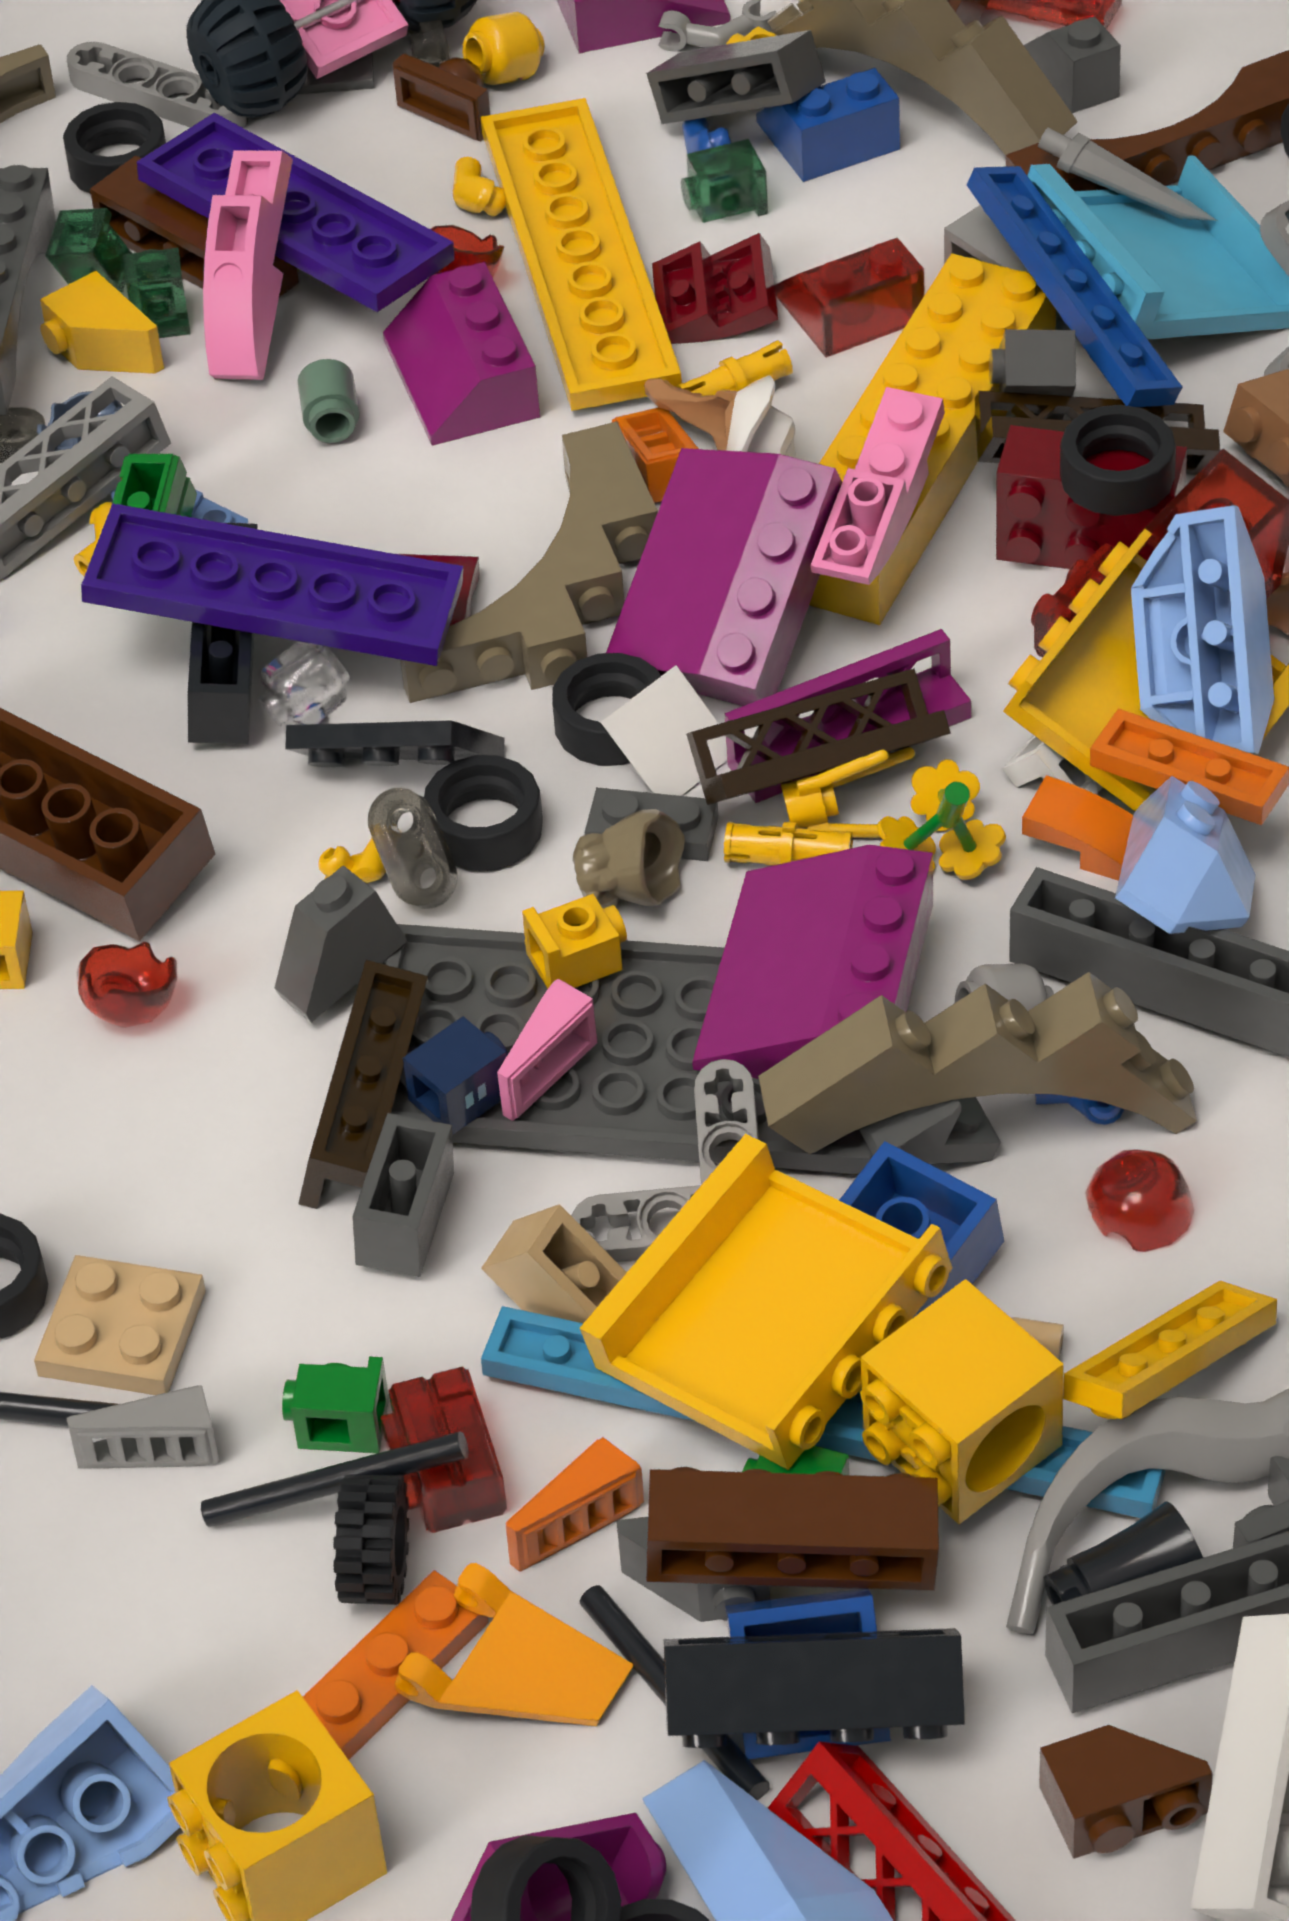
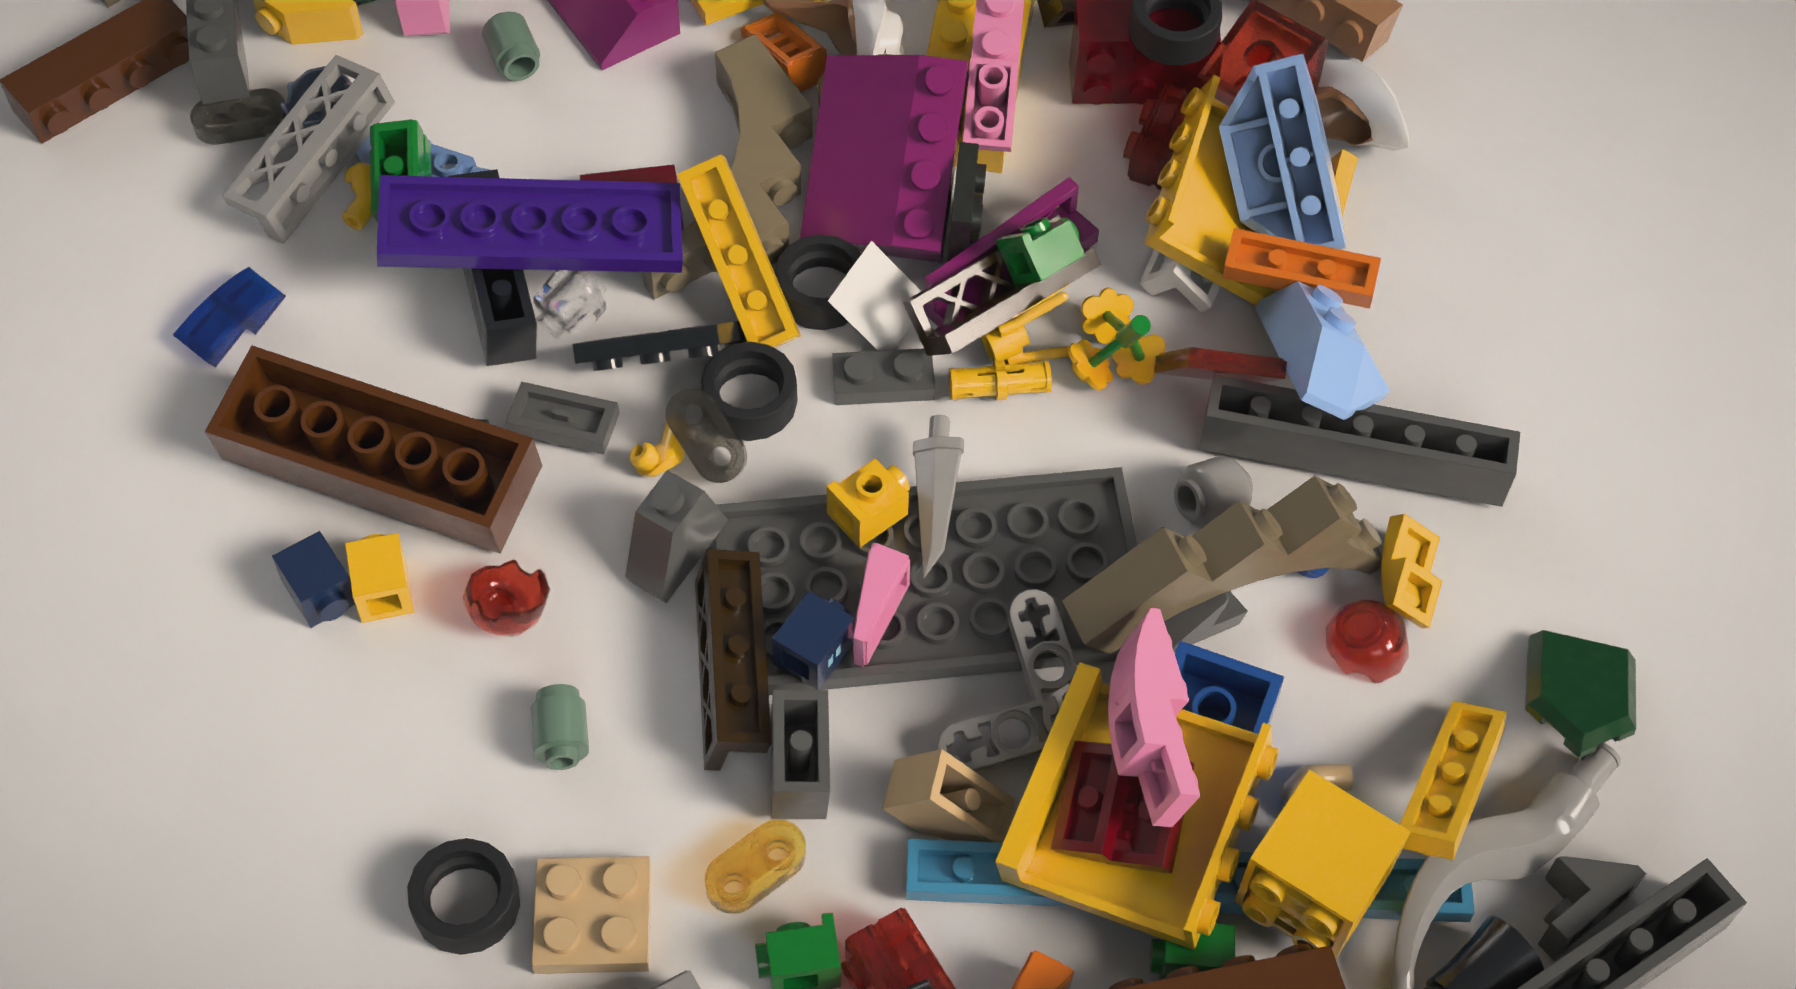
camera: 20 degrees left, 10 degrees up
(144, 1125) = (559, 727): none -> sand green brick
(257, 808) = (563, 417): none -> dark grey plate
(318, 1307) = (753, 868): none -> clear yellow plate
(511, 654) = (738, 253): none -> yellow plate
(631, 860) = (883, 418): dark tan hair -> none
(667, 932) = (936, 478): none -> light grey bar
(750, 1299) = (1107, 815): none -> dark red slope
(799, 1198) = (1143, 724): none -> bright pink slope
(802, 637) = (967, 200): none -> pearl dark grey plate
(815, 948) = (1065, 485): magenta slope -> none
(872, 698) = (1040, 249): none -> brick
(1020, 850) = (1205, 363): none -> clear red tile
(1080, 822) = (1223, 323): orange slope -> none
(1216, 1128) = (1407, 568): none -> yellow slope

